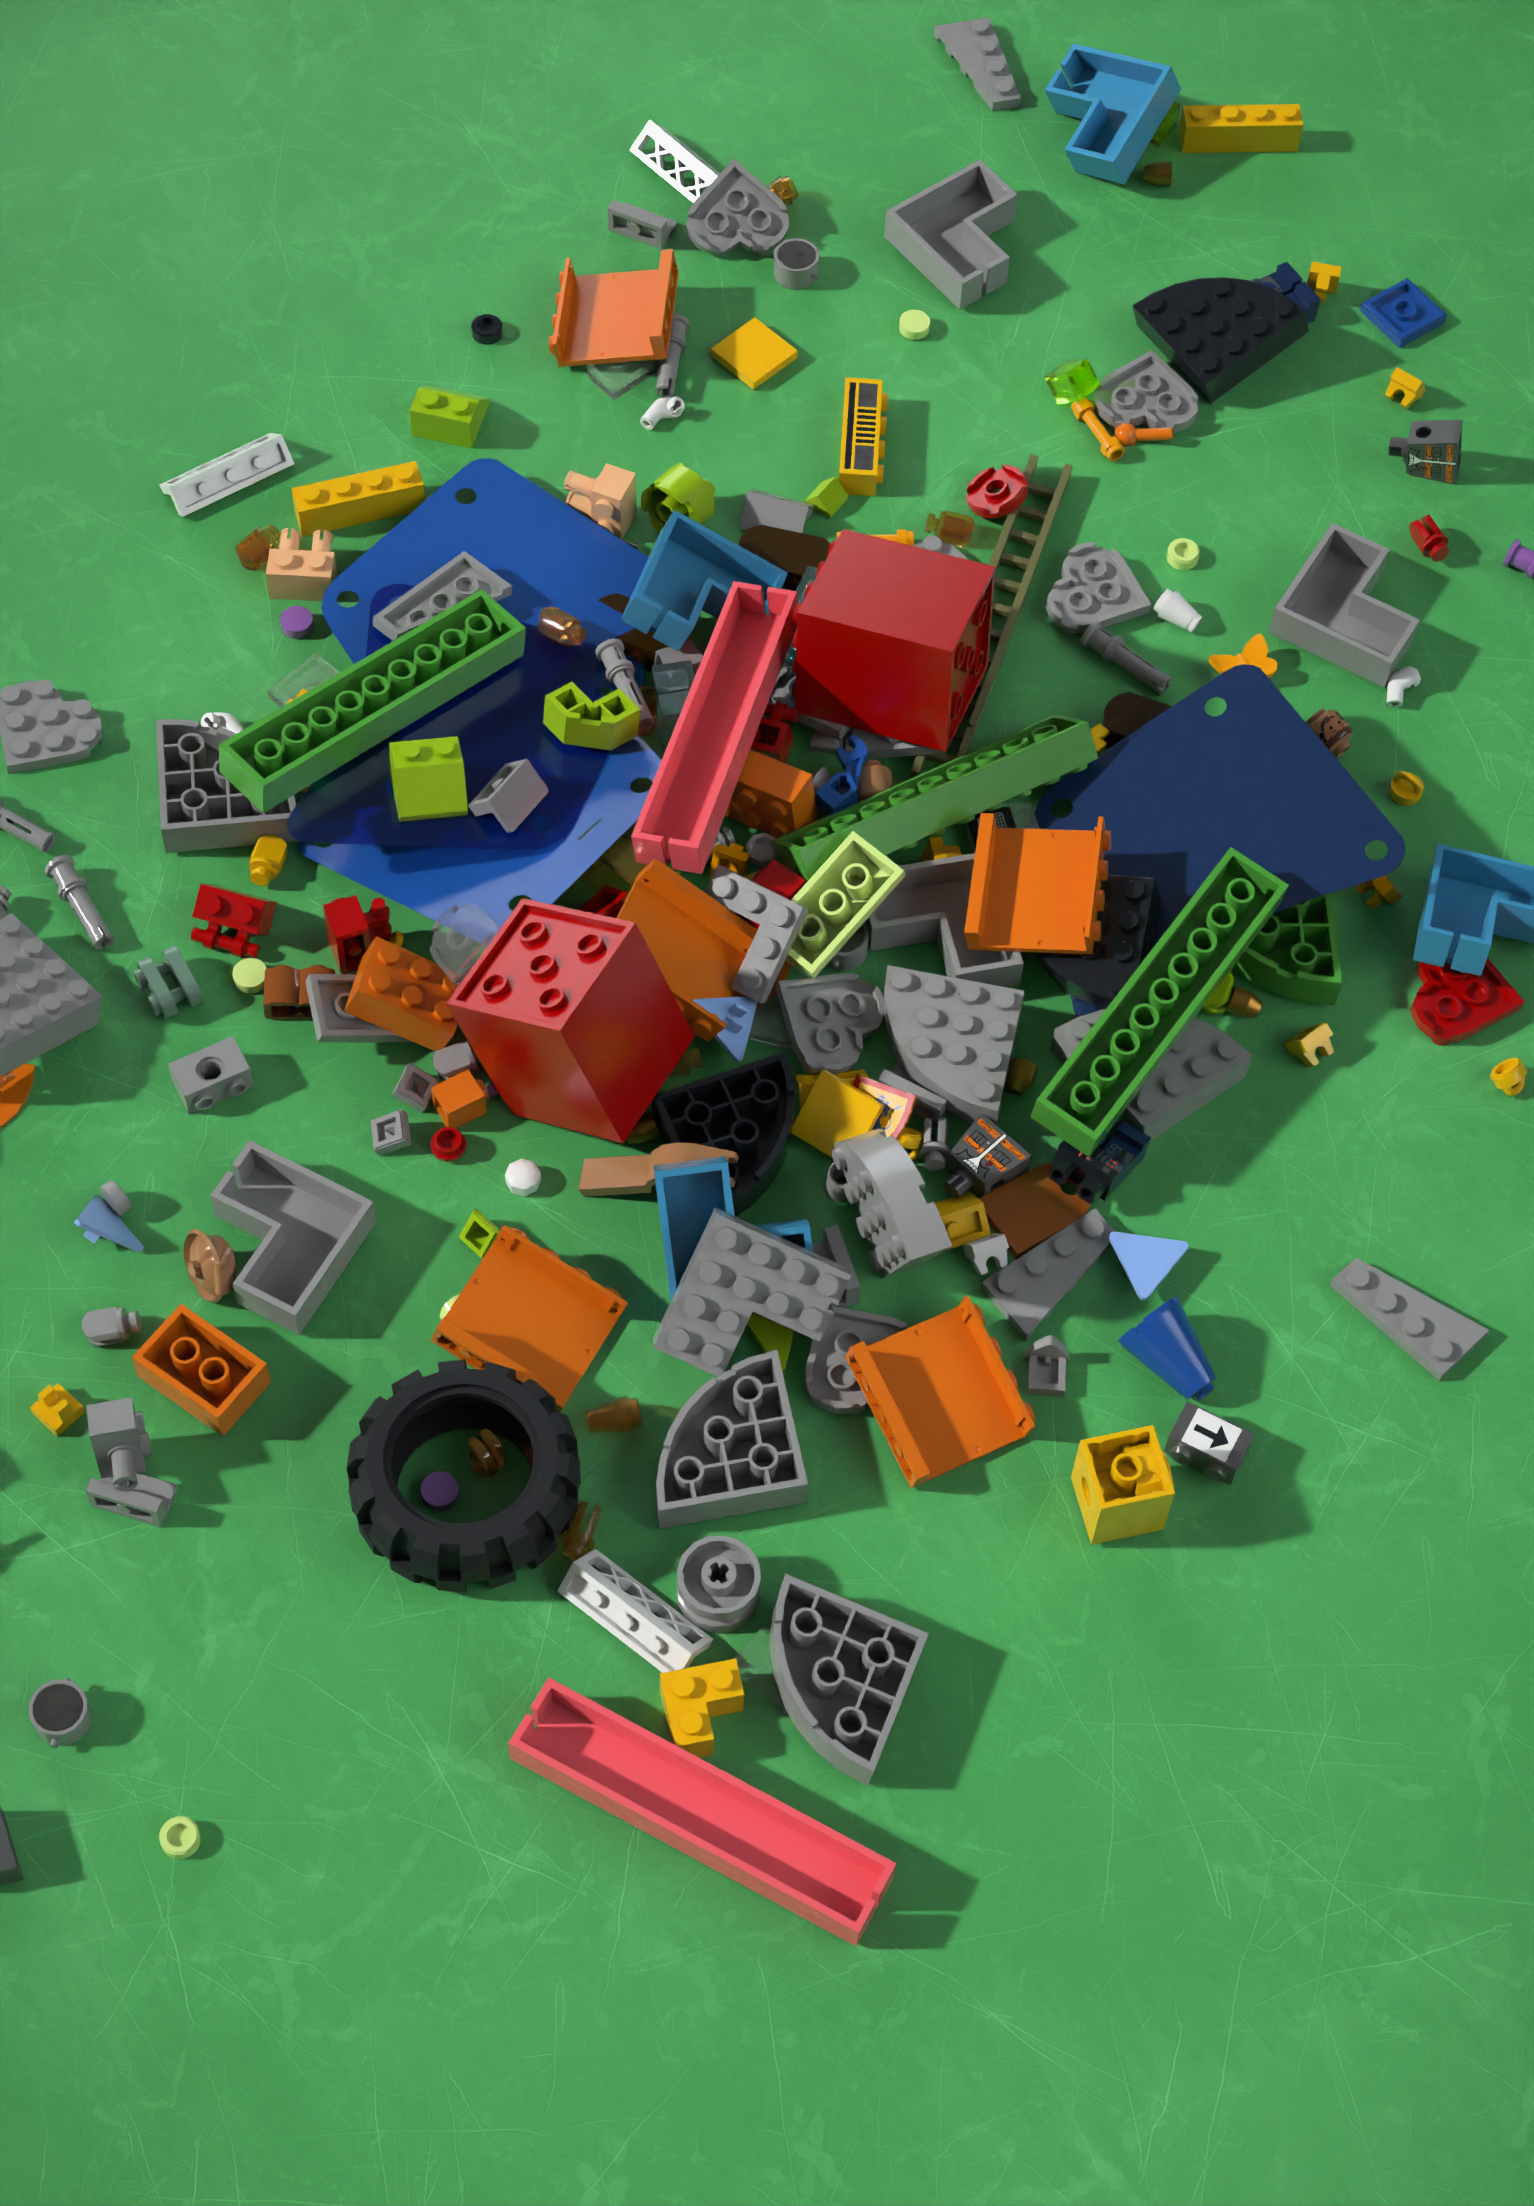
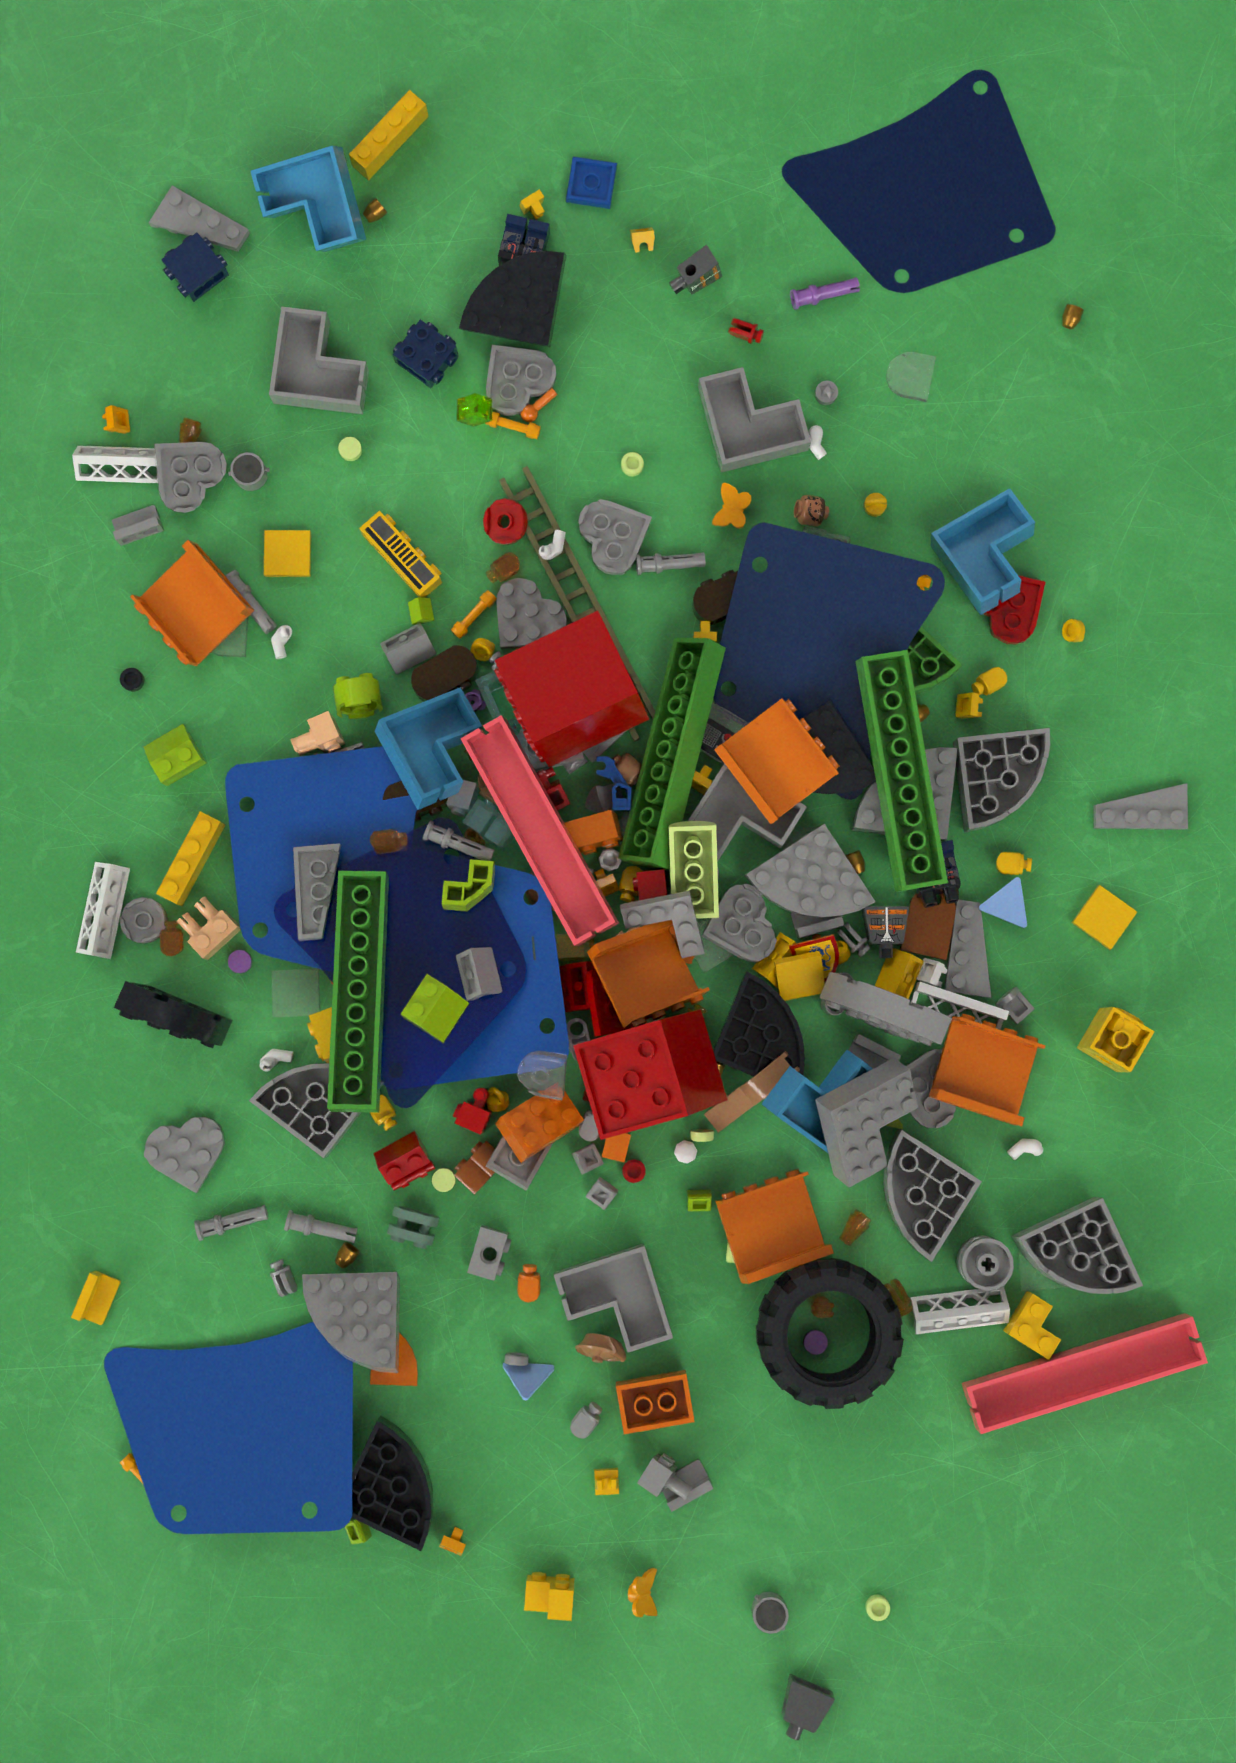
camera: 45 degrees left, 25 degrees up
(74, 950) = (346, 1255): none -> pearl gold hose
(178, 580) = (171, 1013): none -> black brick
(214, 1143) = (529, 1283): none -> orange arm
(250, 510) = (143, 920): none -> light grey tile
(558, 1174) = (702, 1135): none -> yellowish green tile
(723, 134) = (117, 419): none -> light orange tile
(738, 1015) = (698, 975): light blue piece -> none
(901, 1519) = (1025, 1145): none -> white arm
(936, 83) = (195, 266): none -> dark blue brick
(981, 1293) = (959, 1000): none -> white fence
(1018, 546) = (555, 548): none -> white arm
(1078, 308) = (426, 353): none -> dark blue brick
(1171, 1350) = (1062, 942): blue cone -> none
(1176, 610) = (666, 506): white cone -> none
(1197, 1229) = (1013, 863): none -> yellow arm
(1208, 1443) = (1122, 971): brick -> none
(1248, 1378) = (1104, 917): none -> yellow tile
(1274, 1126) = (998, 773): none -> light grey brick
(1359, 1041) = (990, 681): none -> yellow arm
(1459, 656) = (826, 392): none -> light grey tile

